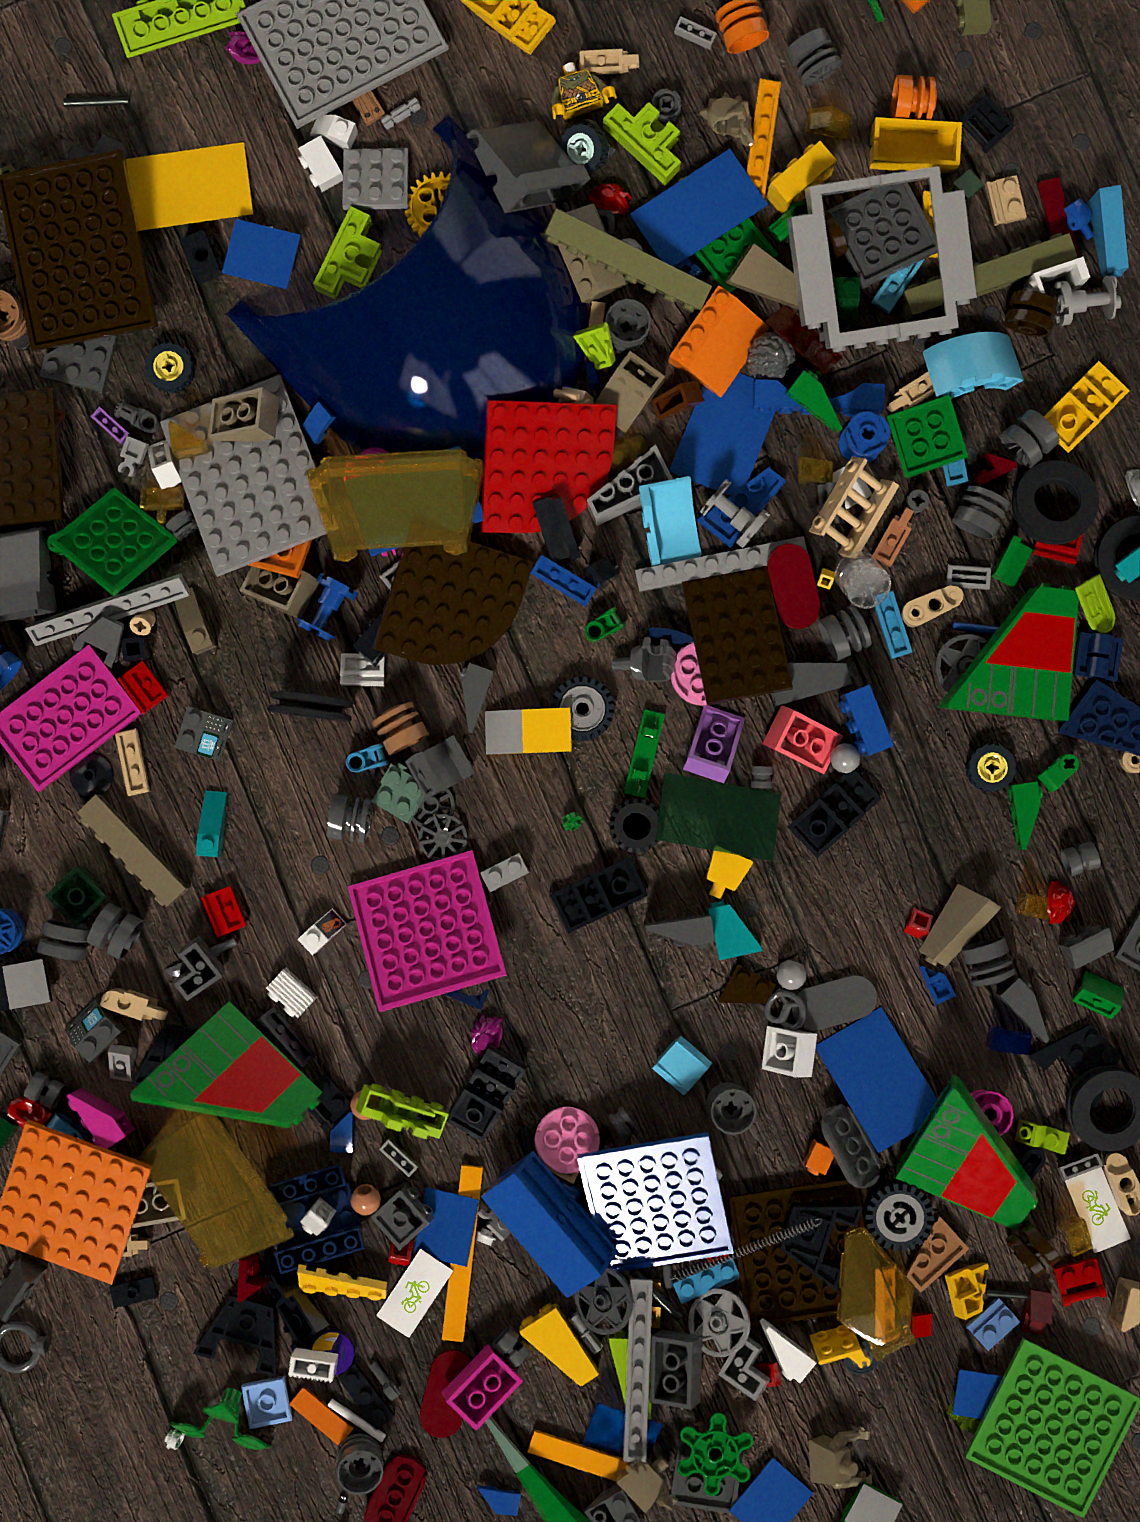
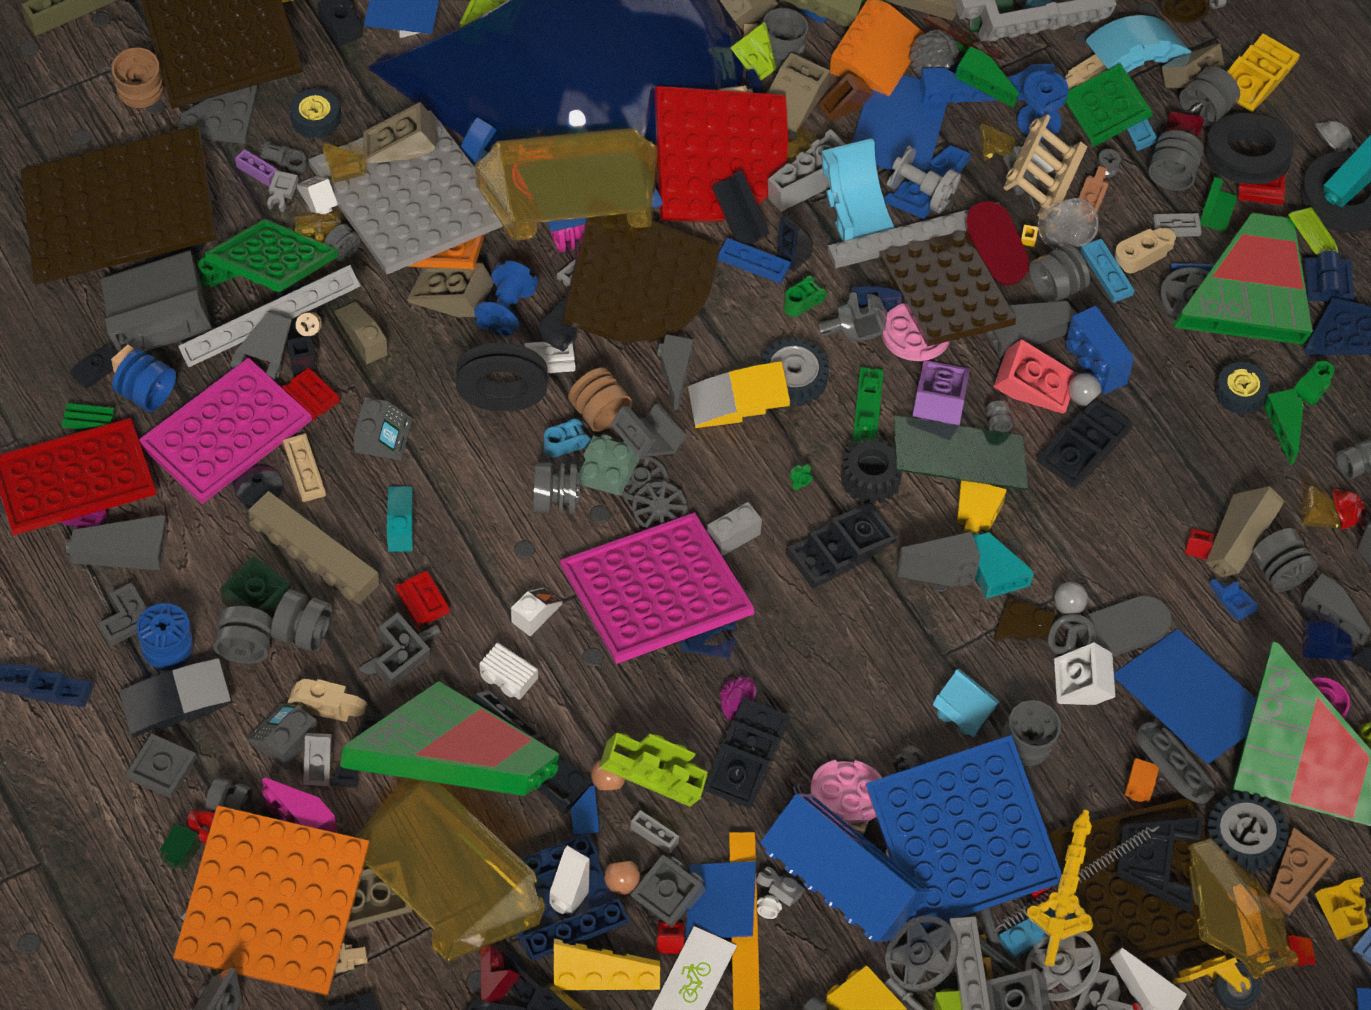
camera: 10 degrees left, 30 degrees down
(729, 1273) = (1065, 900): none -> yellow bar
(1017, 398) = (1184, 69): none -> dark tan slope

